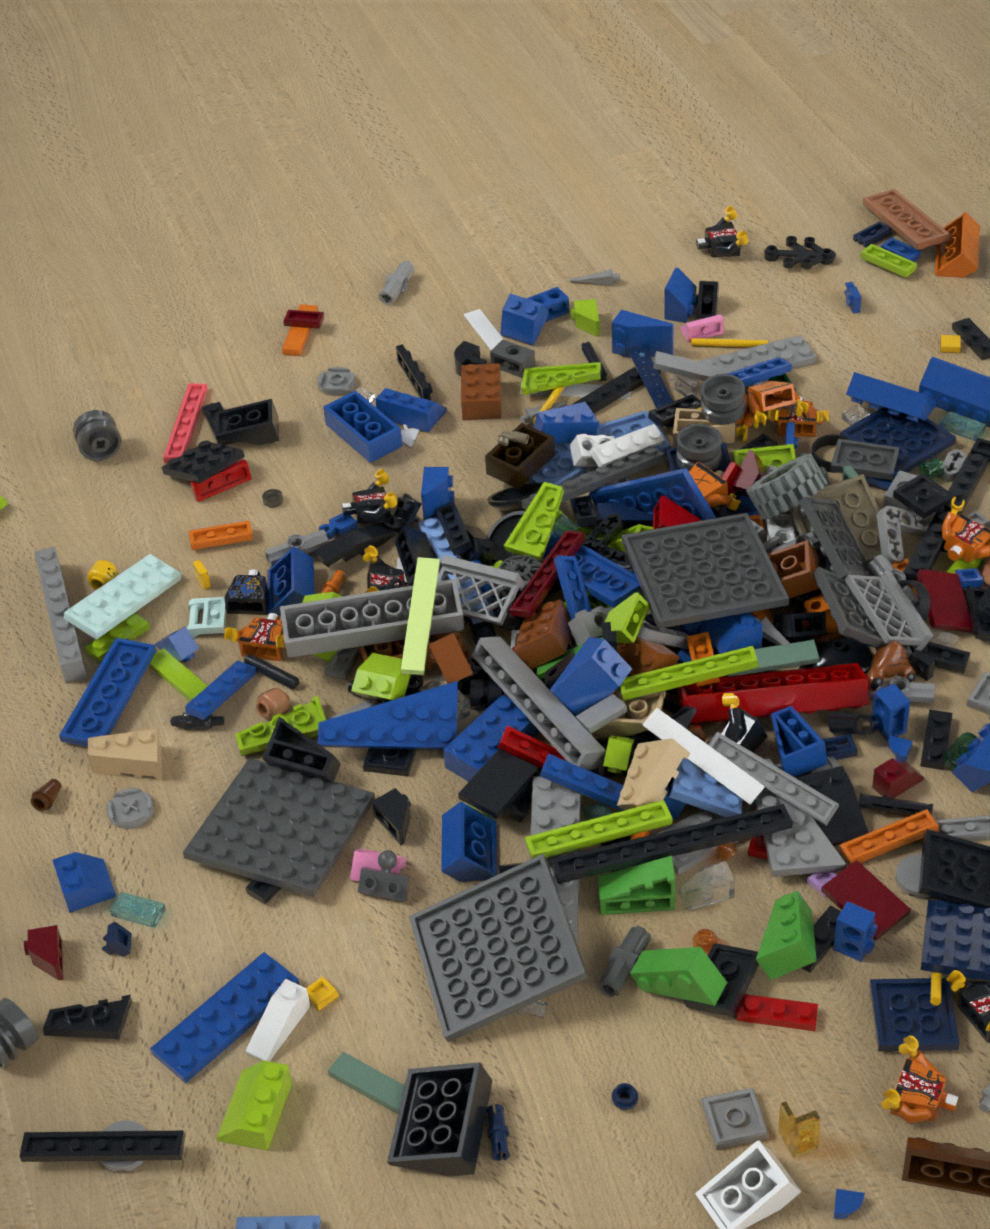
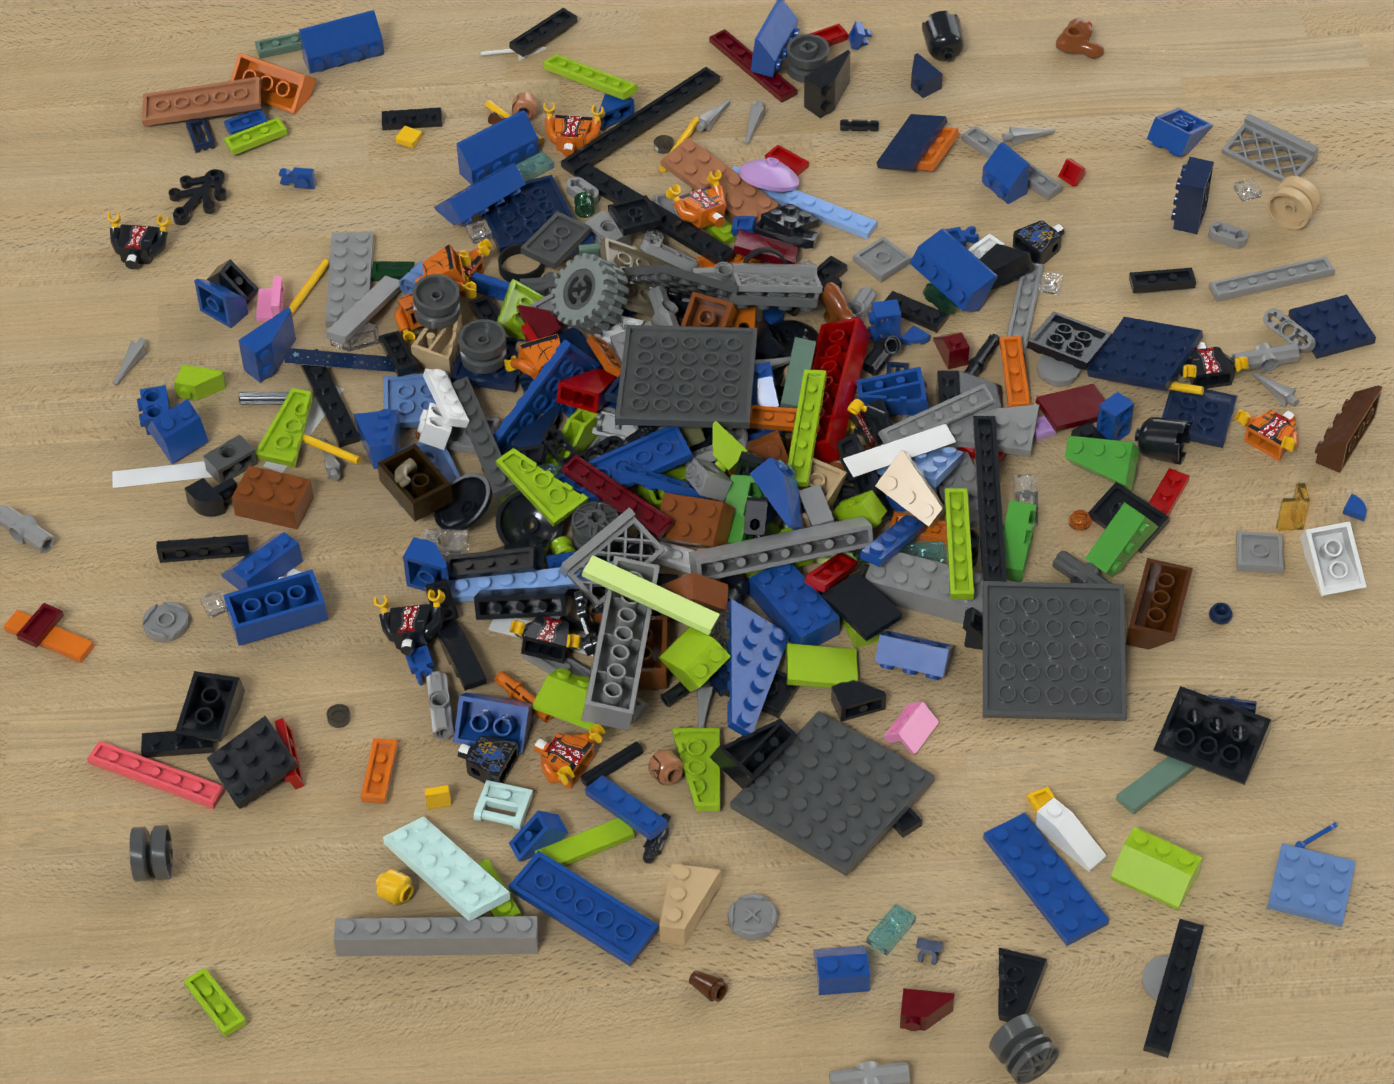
camera: 75 degrees left, 5 degrees up
(383, 881) = (938, 721): dark grey plate -> none
(427, 781) = (820, 665): none -> lime tile
(471, 501) = (448, 541): none -> clear brick
(602, 1023) = (1158, 604): none -> reddish brown slope
(763, 371) = (387, 276): blue plate -> none
(848, 986) = (1163, 439): none -> black cylinder

